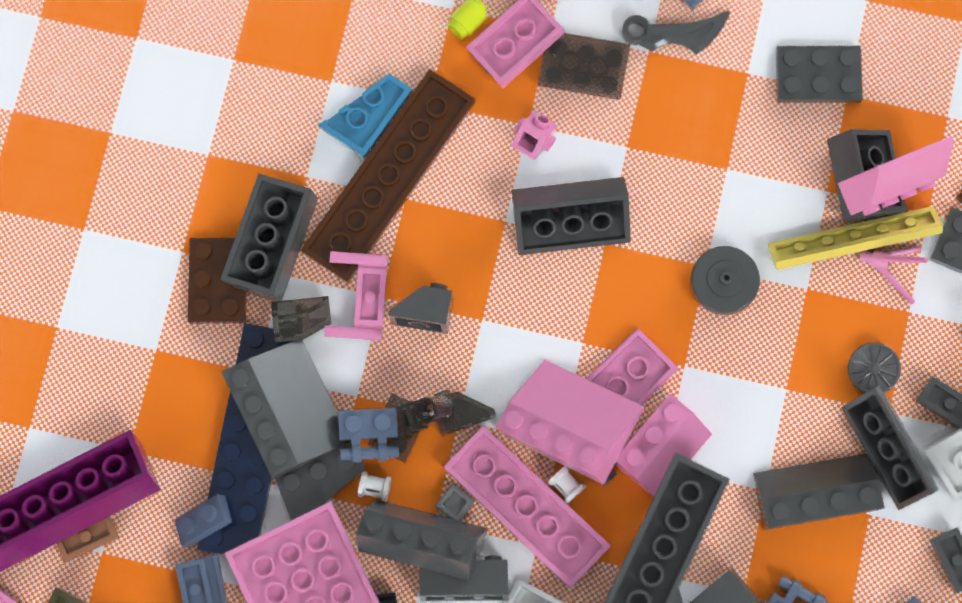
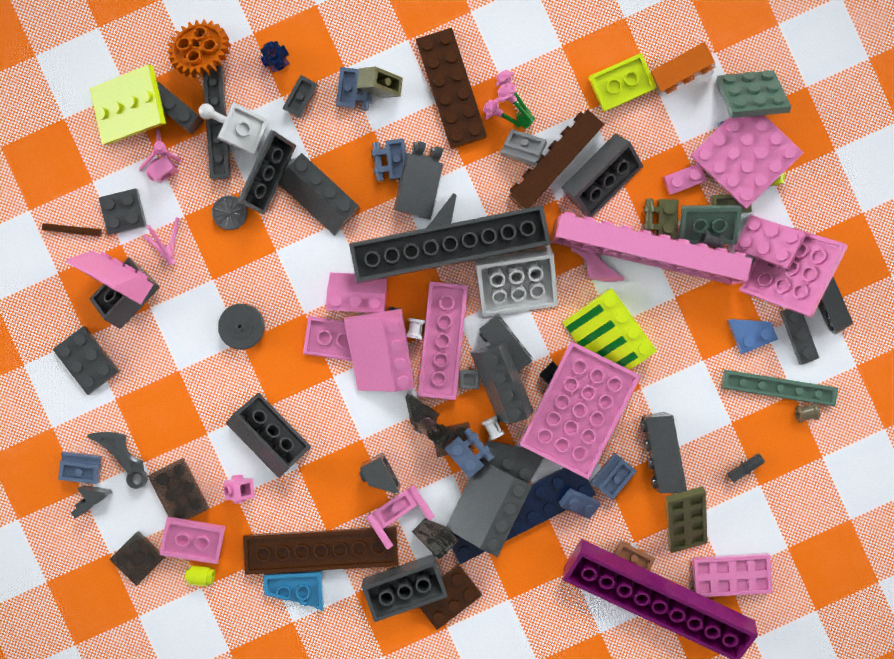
camera: 135 degrees left, 10 degrees up
(855, 238) = (164, 273): light yellow plate -> none

